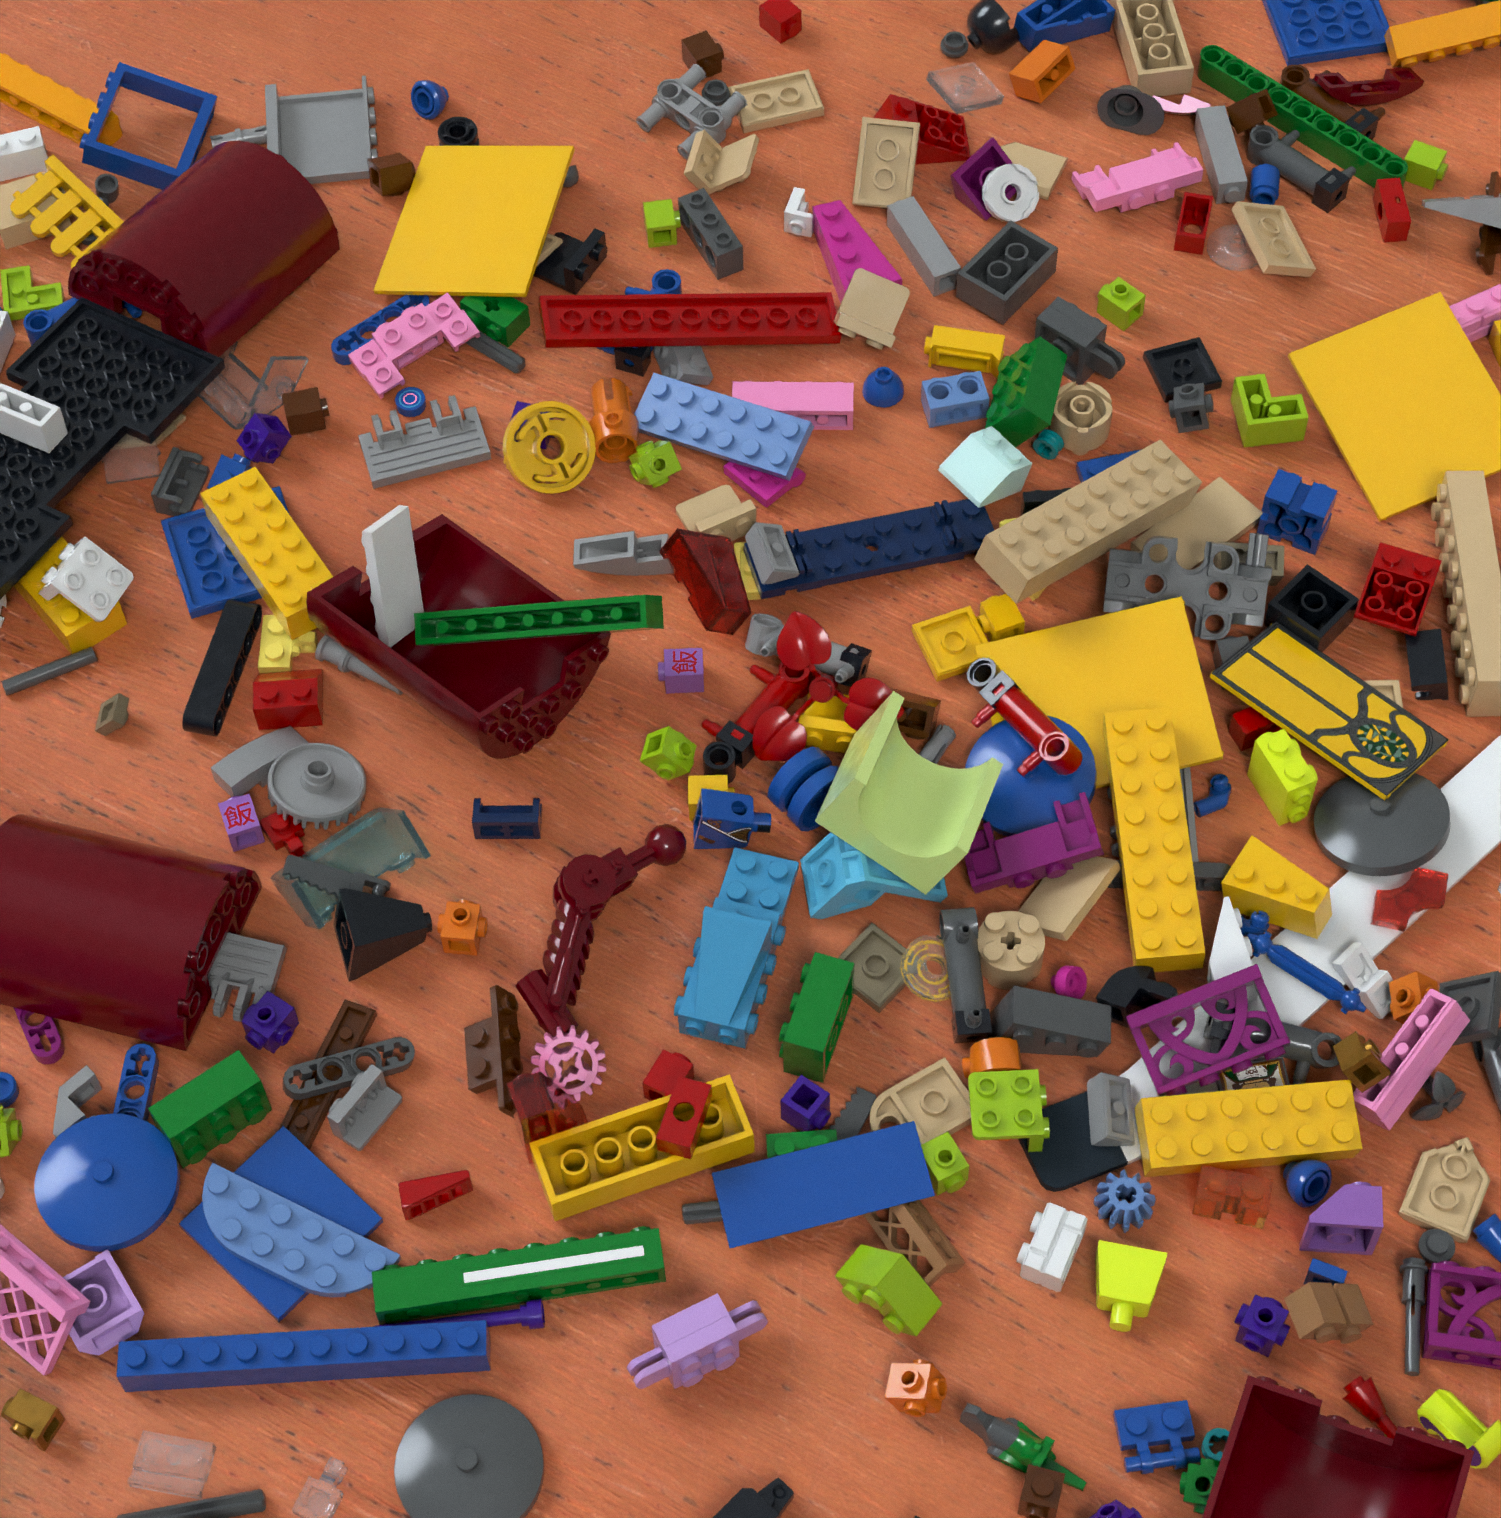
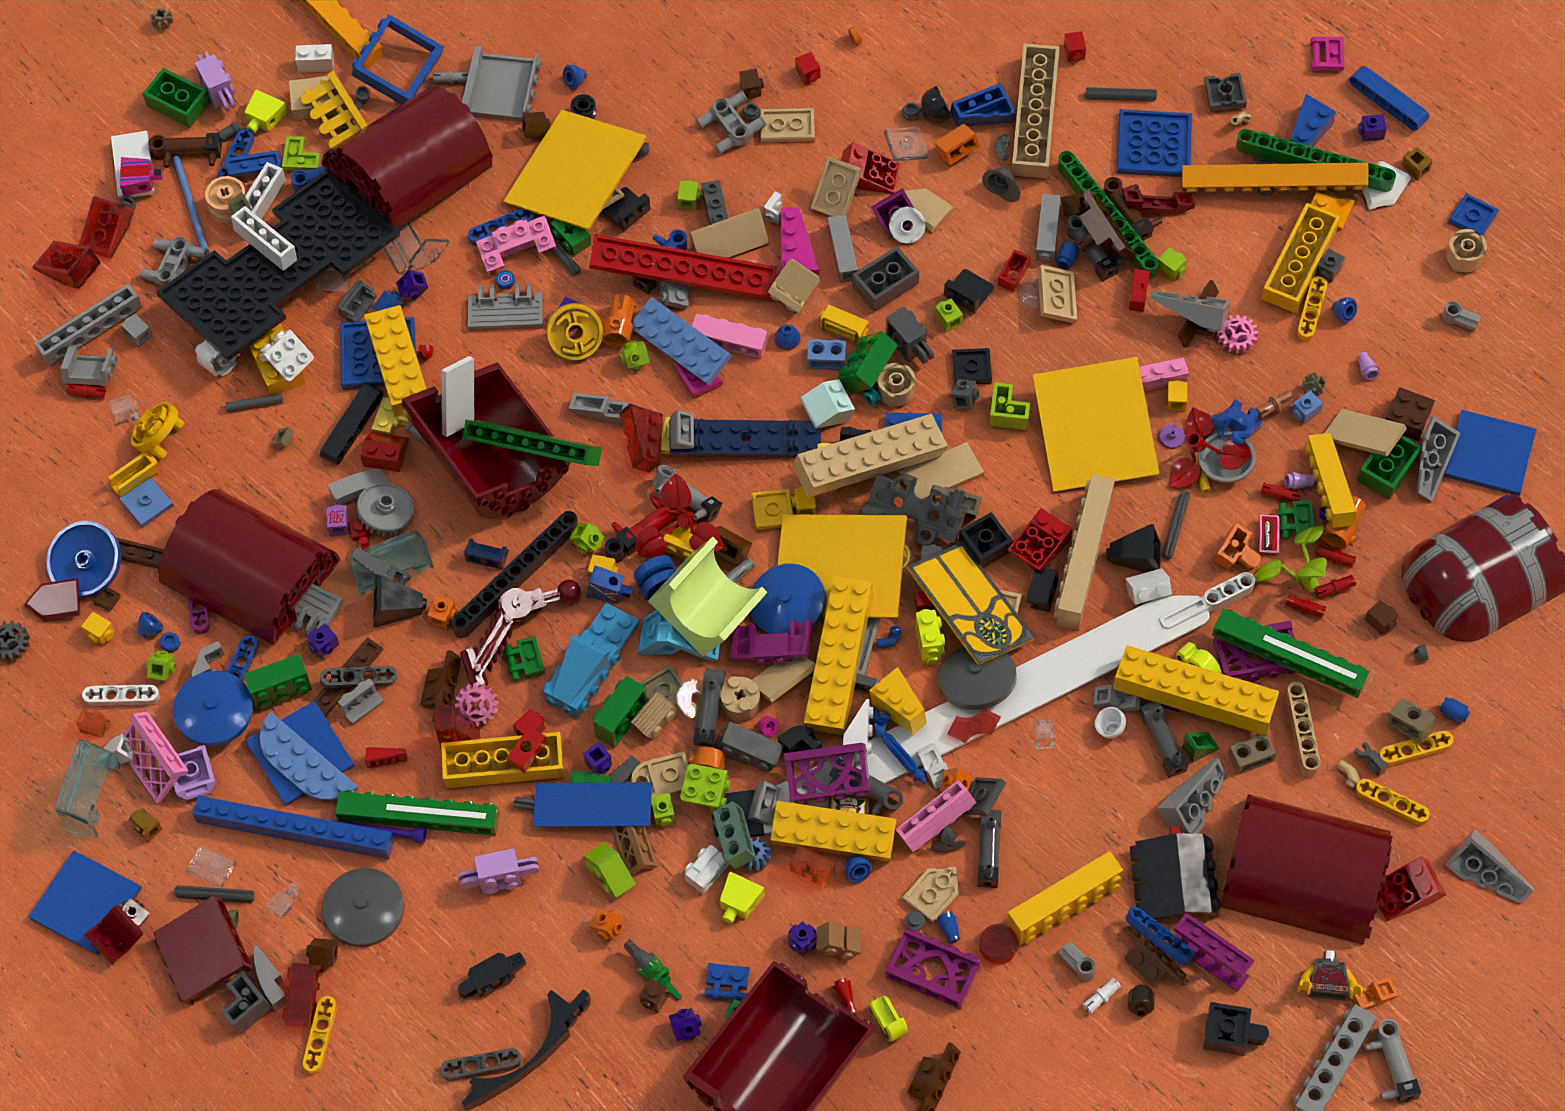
camera: 15 degrees right, 5 degrees up
(305, 411) = (440, 272): reddish brown brick -> none
(314, 531) = (426, 351): none -> red hinge
(562, 851) = (518, 565): none -> black beam
(633, 966) = (530, 658): none -> green plate
(682, 670) = (611, 489): medium lavender brick -> none
(718, 167) = (734, 163): tan bracket -> none
(718, 513) = (661, 396): tan bracket -> none
(749, 260) = (731, 235): none -> tan tile
(877, 1009) = (654, 715): none -> tan brick
(1024, 717) = (787, 553): red piece -> none
(1098, 1185) = (733, 835): none -> sand green brick
(1104, 64) = (1000, 146): none -> clear light blue arm
(1137, 263) = (968, 290): none -> black bracket
(1139, 181) = (990, 235): bright pink bracket -> none
(1187, 106) = (1039, 188): bright pink slope -> none
(1297, 511) = (1000, 476): blue brick -> none
(1313, 131) = (1102, 228): none -> reddish brown brick
(1325, 1273) = (846, 920): blue tile -> none
(1346, 1222) = (866, 894): medium lavender slope -> none
(1361, 1061) = (908, 807): pearl gold brick -> none
(1413, 1281) = (891, 944): dark grey pin -> none

